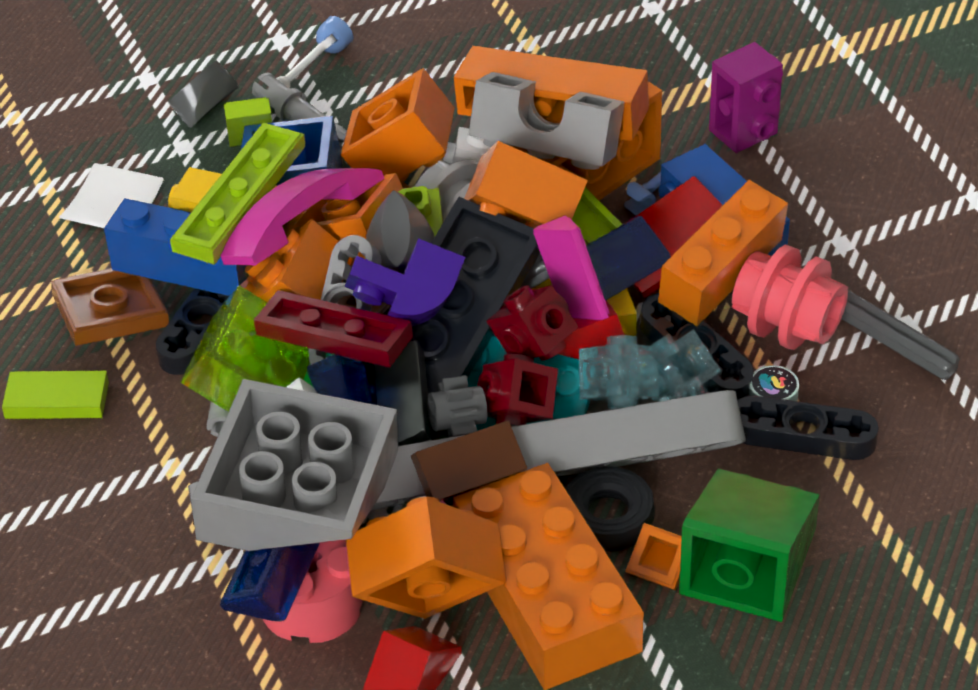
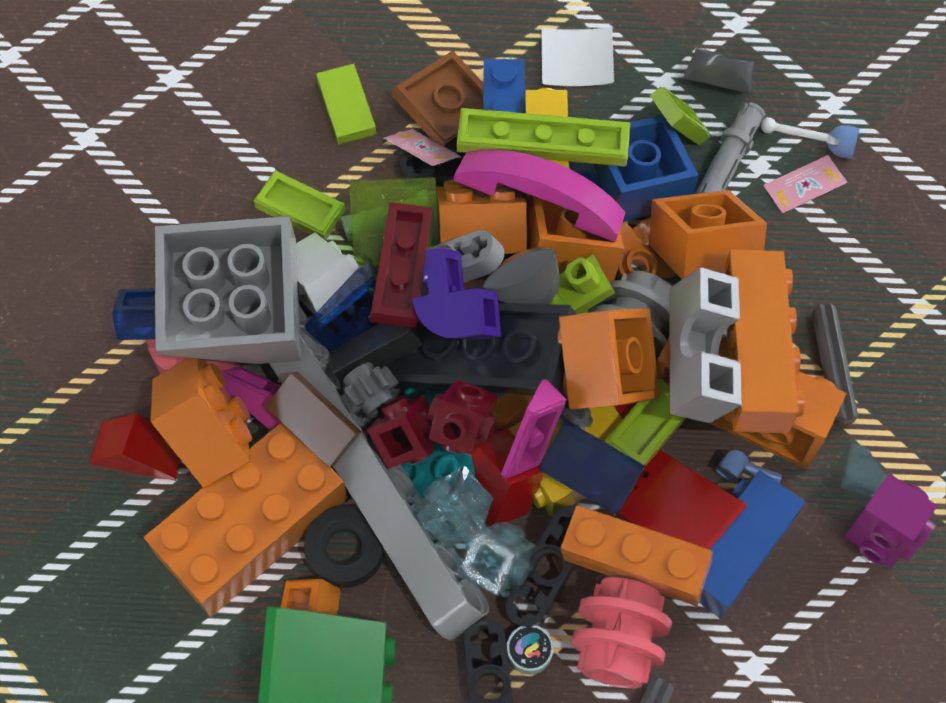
camera: 70 degrees right, 20 degrees up
(159, 333) = (422, 147): none -> bright pink sticker
(163, 465) = (308, 208): none -> lime tile
(357, 79) = (805, 184): none -> bright pink sticker
(684, 122) = (861, 471): none -> clear light blue tile

